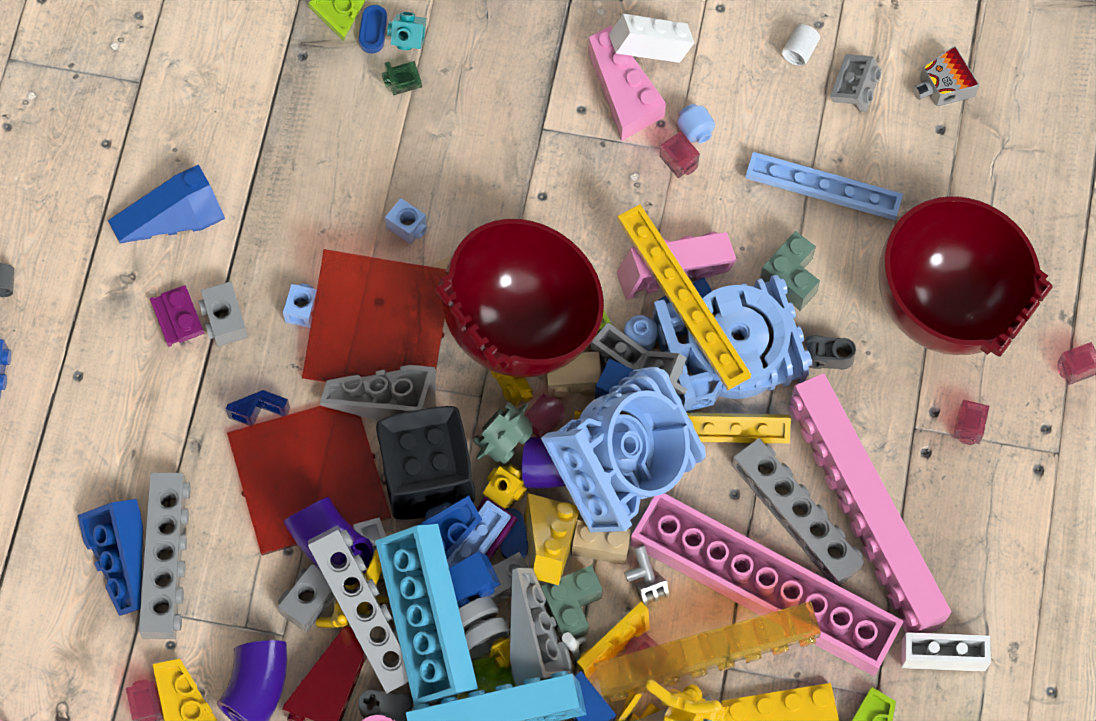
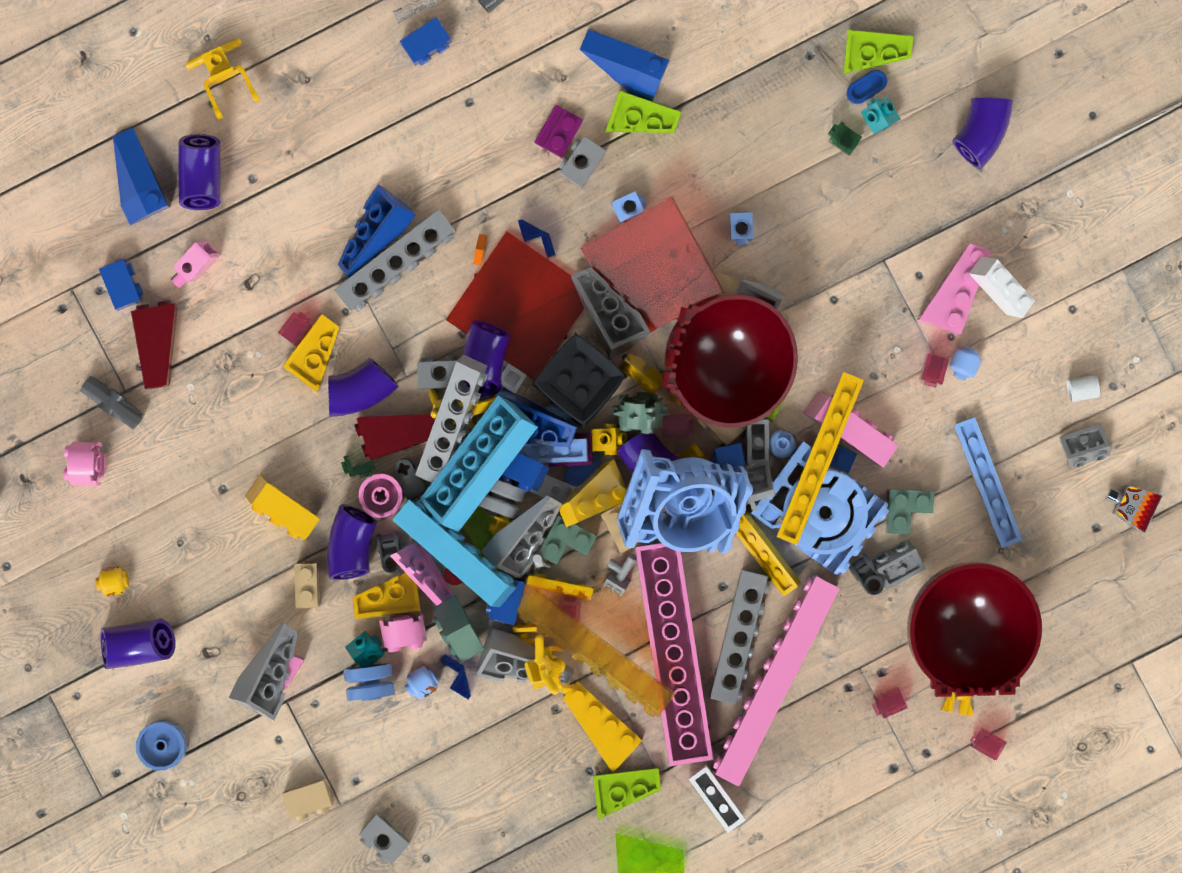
camera: 50 degrees right, 20 degrees up
(223, 469) = (479, 250): none -> orange tile
(227, 232) = (641, 115): none -> lime wing
(478, 409) = (648, 380): none -> yellow hinge
(840, 315) = (898, 564): none -> light grey bracket
(1010, 368) = (965, 706): none -> yellow piece

